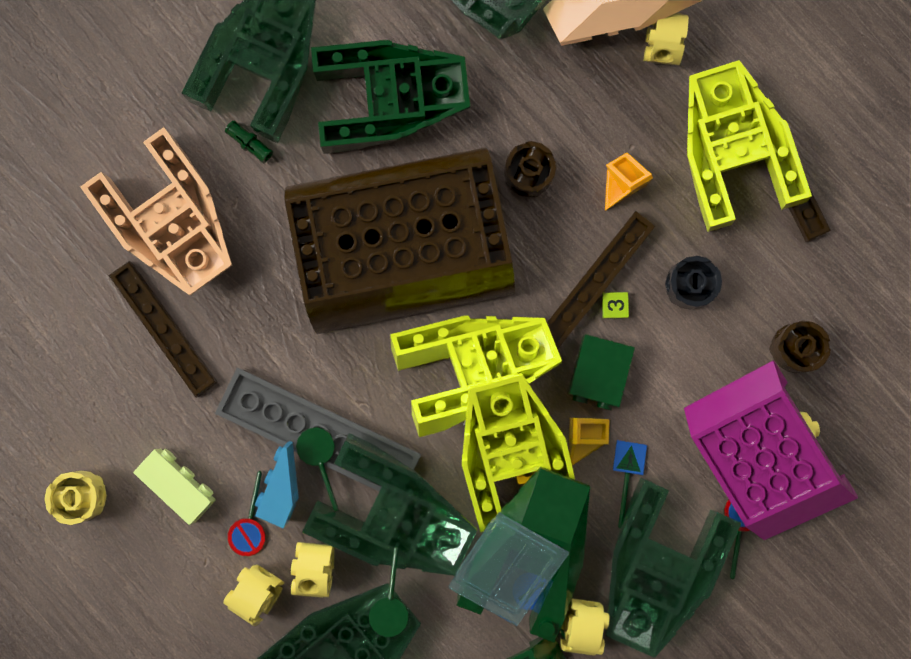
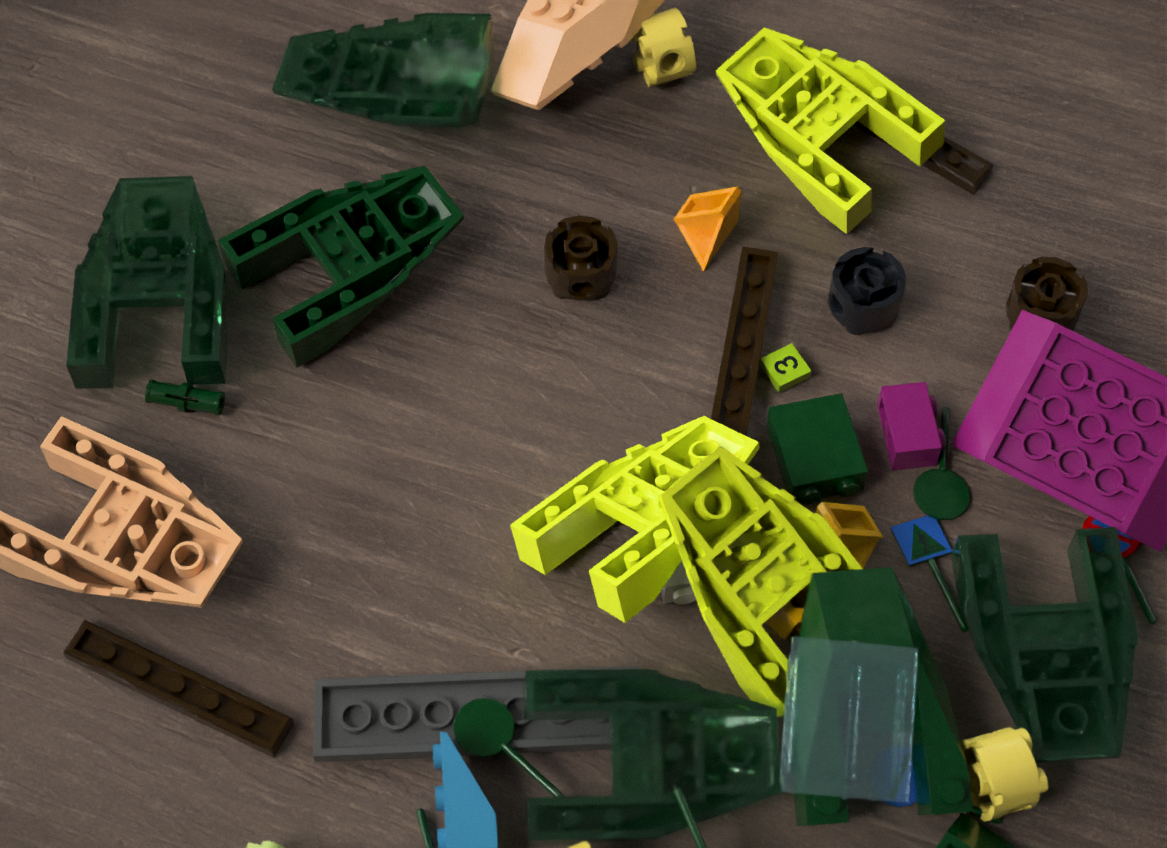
camera: 30 degrees left, 25 degrees down
(405, 269) = (492, 429): dark brown slope -> none
(659, 433) = (940, 491): none -> dark green piece
(665, 385) = (910, 426): none -> magenta brick

